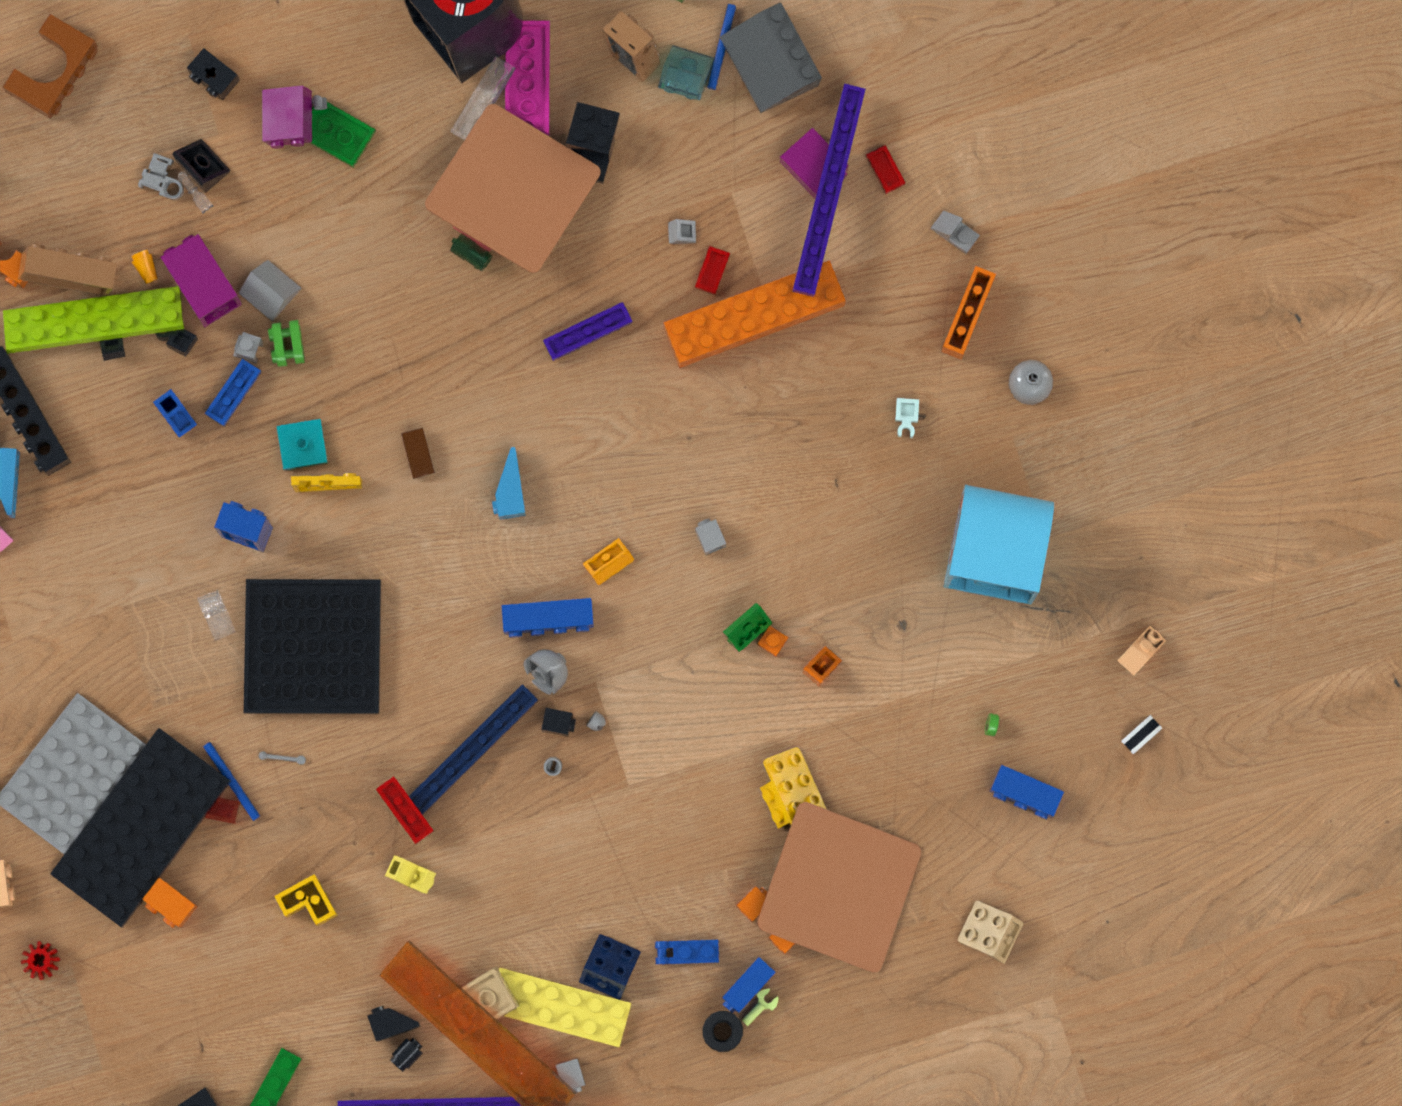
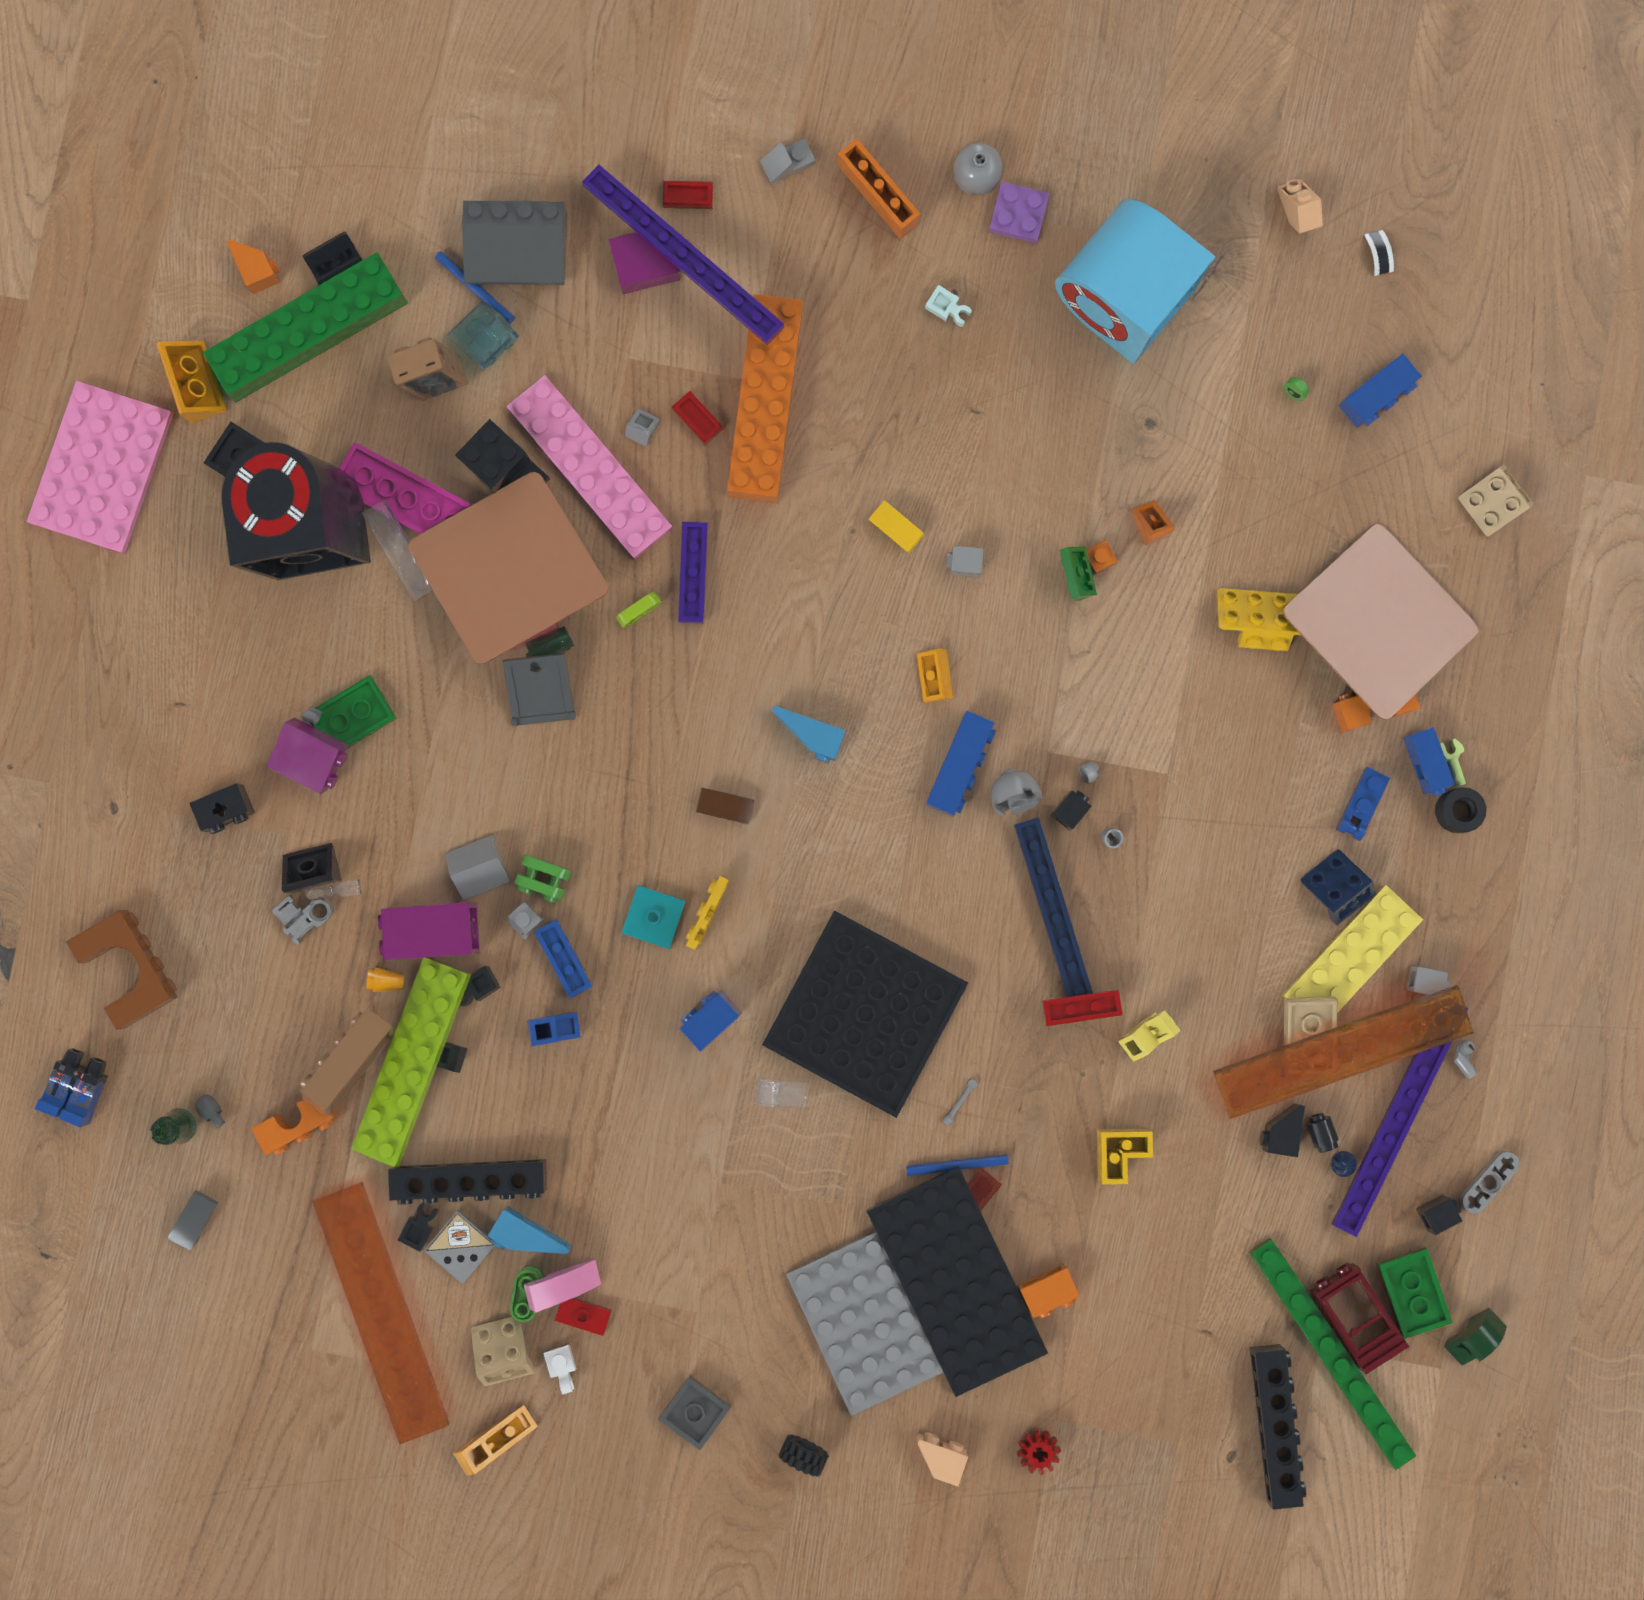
camera: 65 degrees left, 5 degrees up
(391, 1085) = (1343, 1163): none -> dark blue plate
(429, 265) = (538, 694): none -> dark grey container
(535, 305) = (639, 610): none -> lime beam
(628, 209) = (589, 467): none -> bright pink plate
(709, 468) = (896, 526): none -> yellow slope
(1014, 432) = (1019, 212): none -> medium lavender plate

